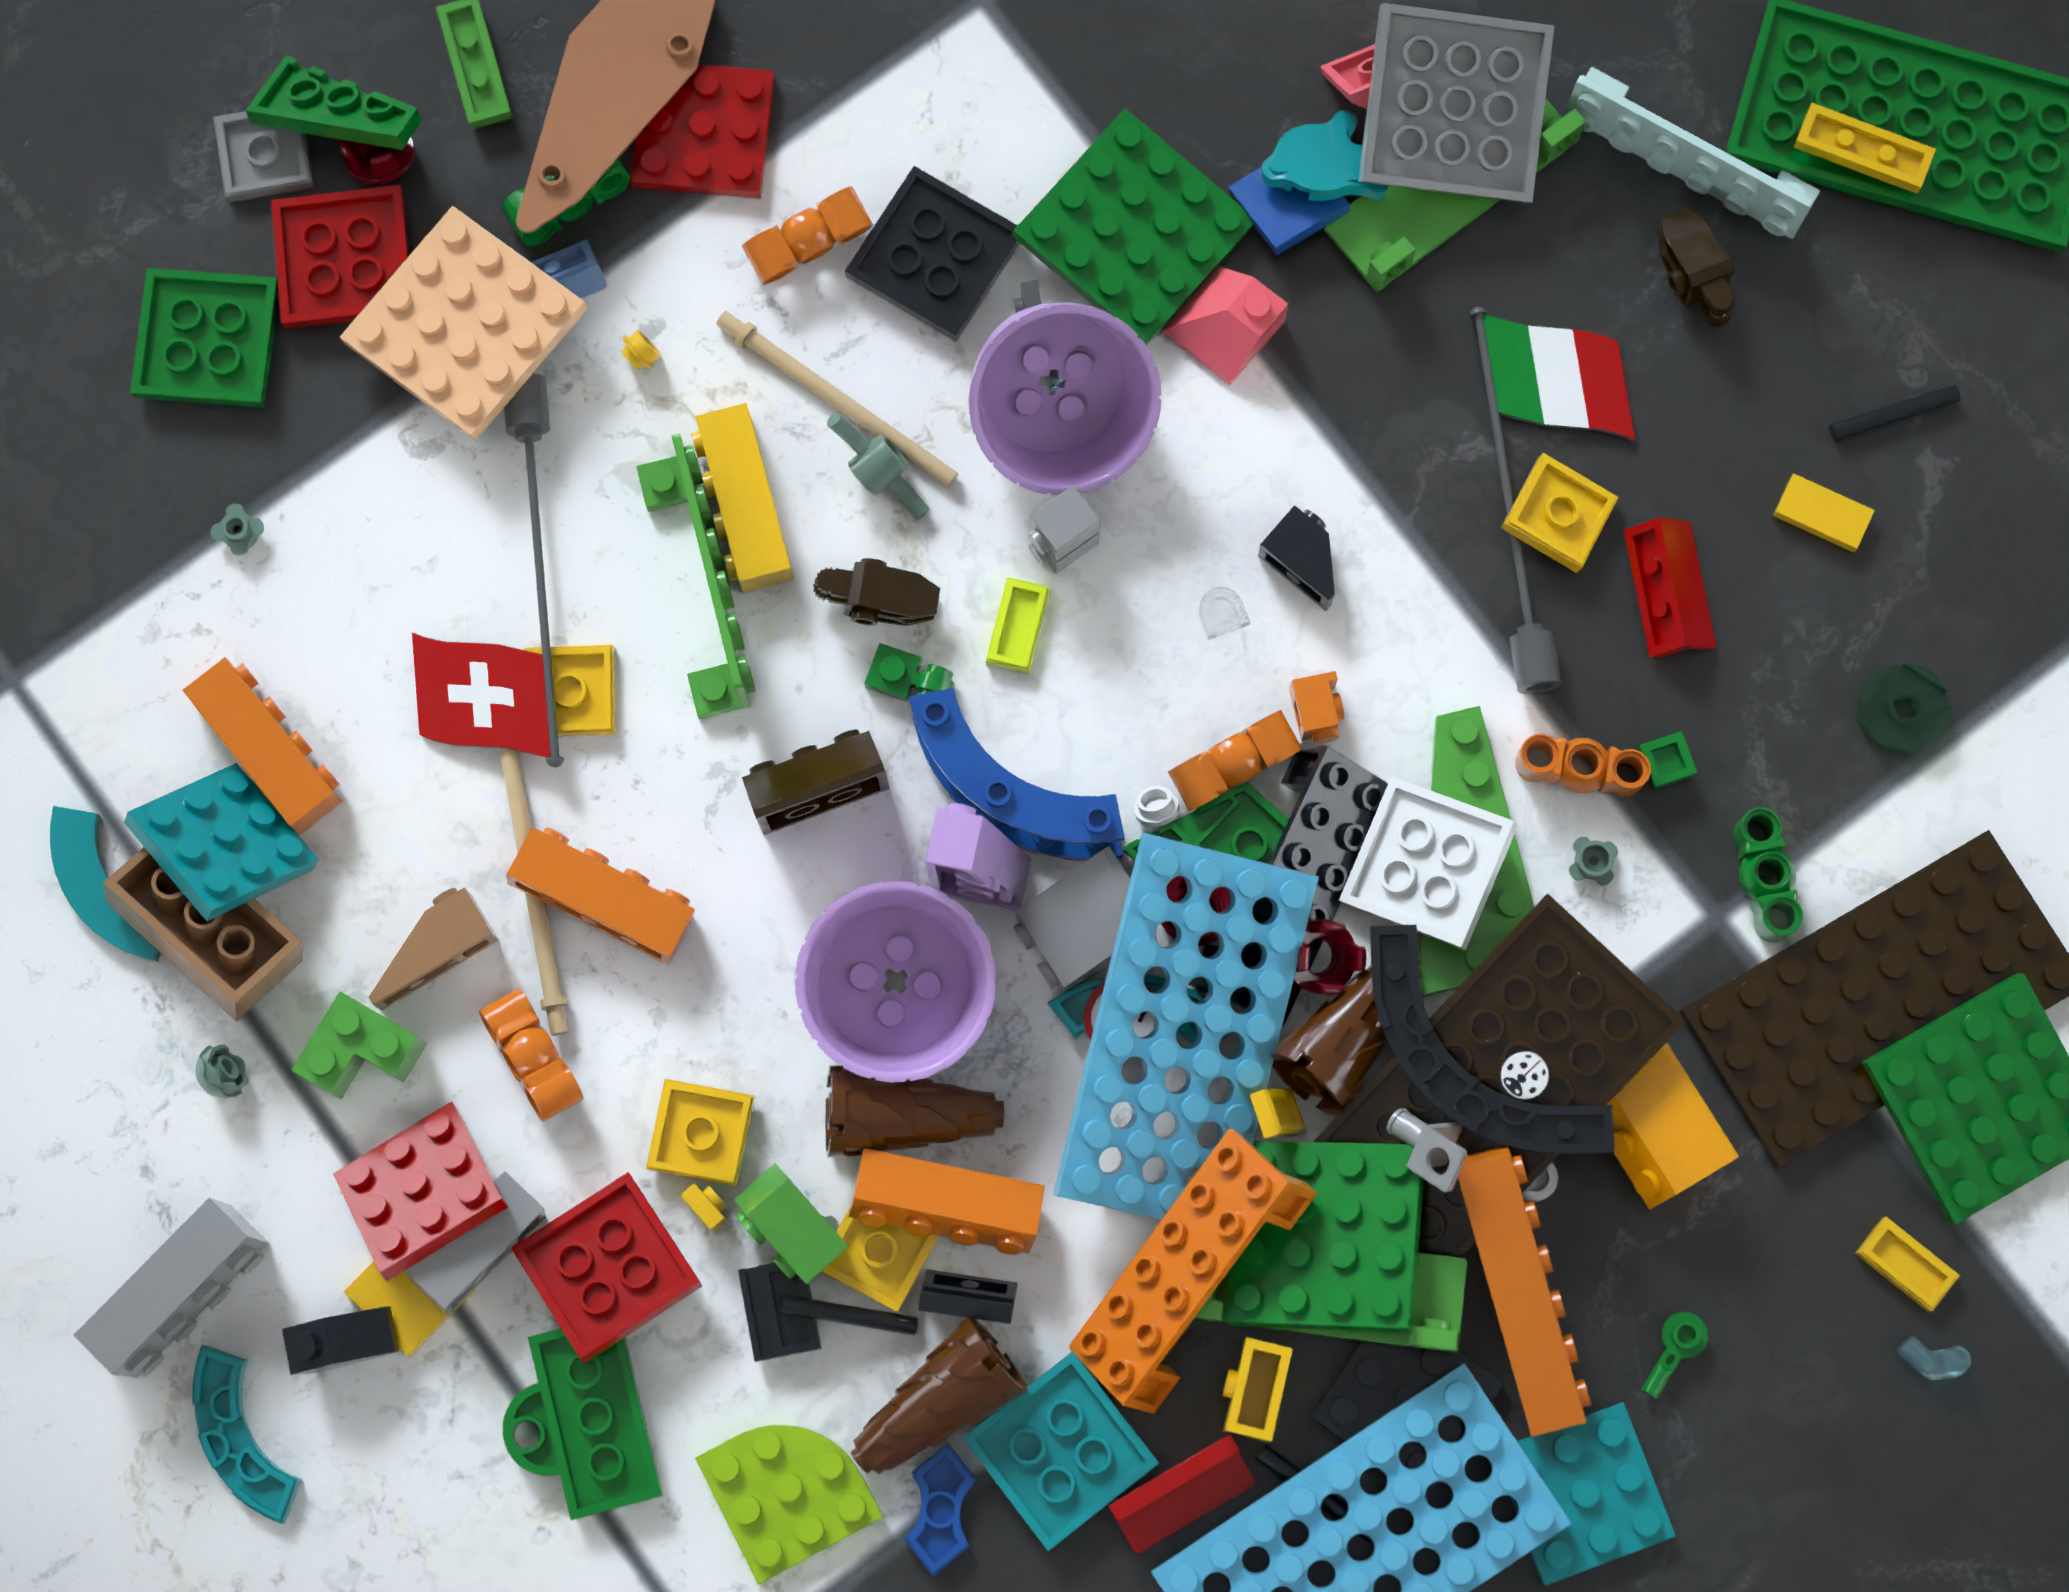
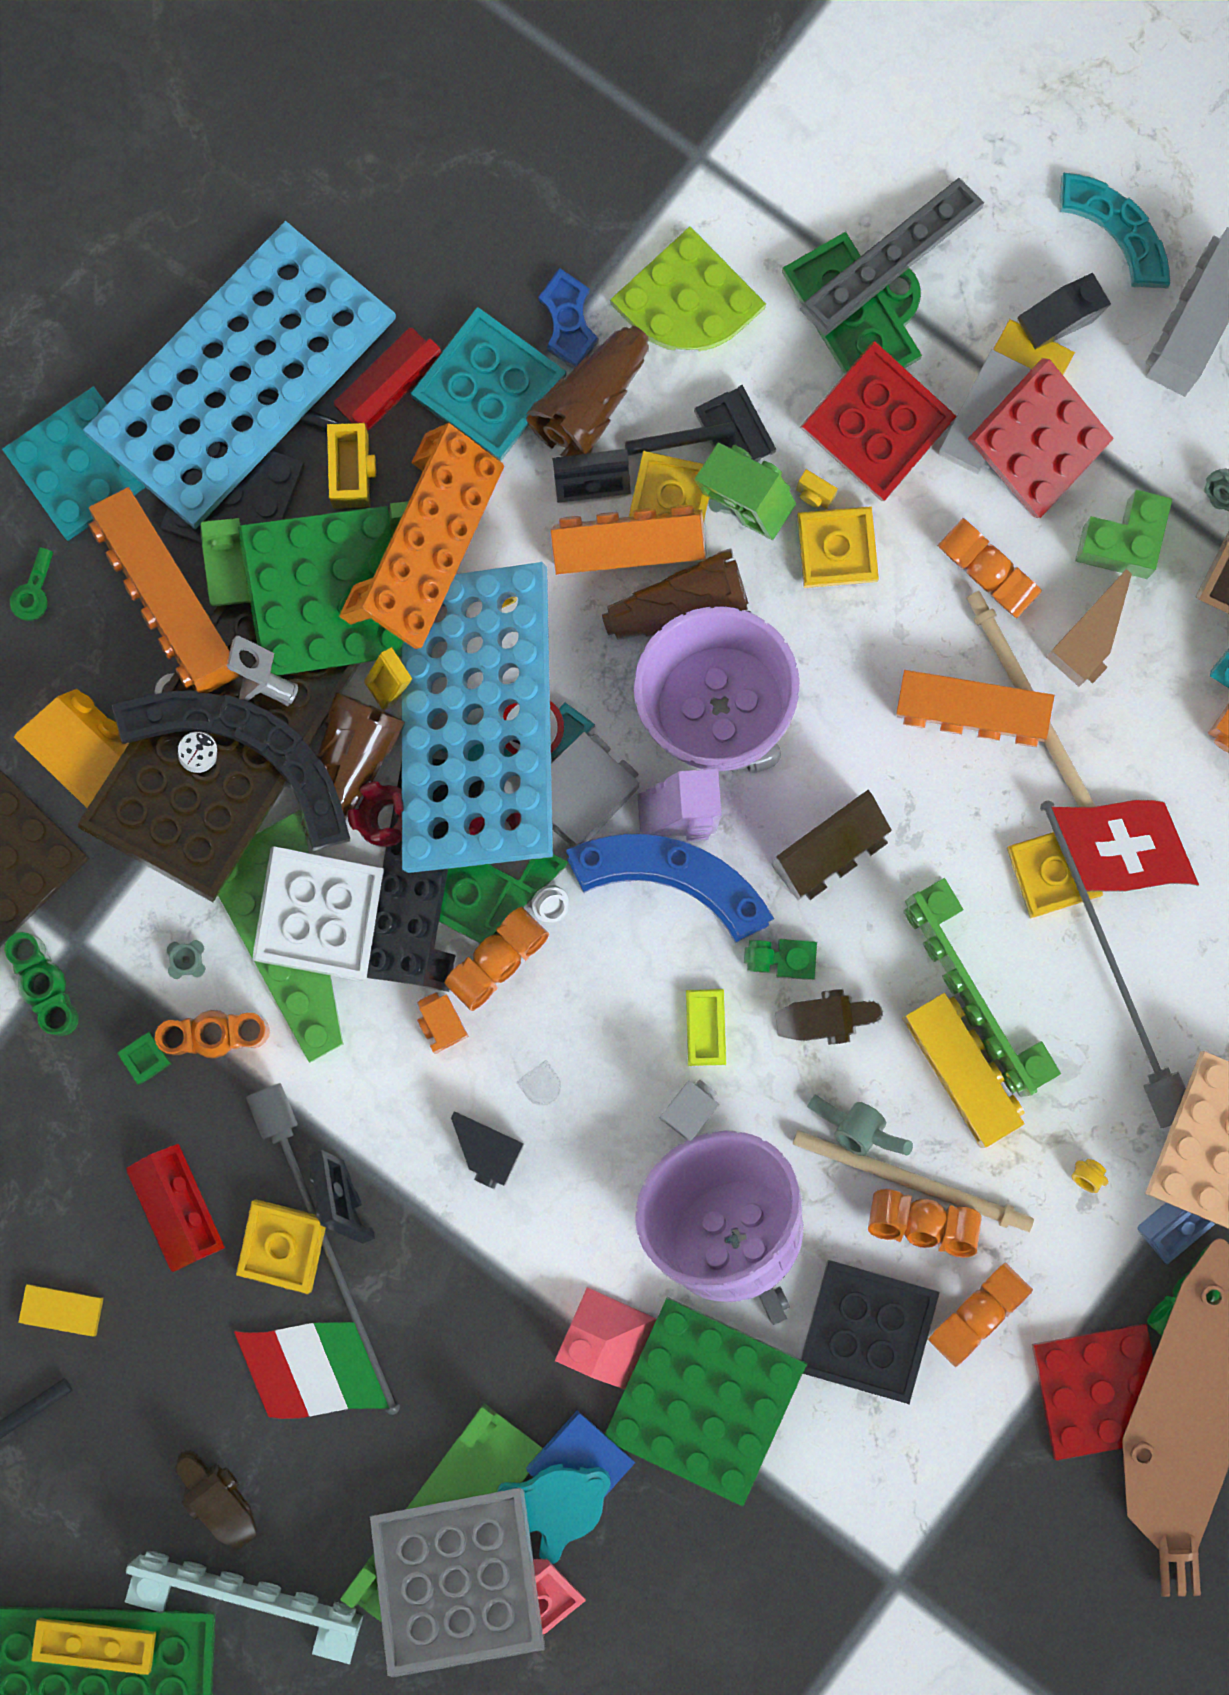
camera: 160 degrees right, 5 degrees up
(524, 1469) = (891, 256): none -> dark grey tile
(838, 346) = (924, 1223): none -> orange piece
(1485, 545) = (337, 1197): none -> black wing

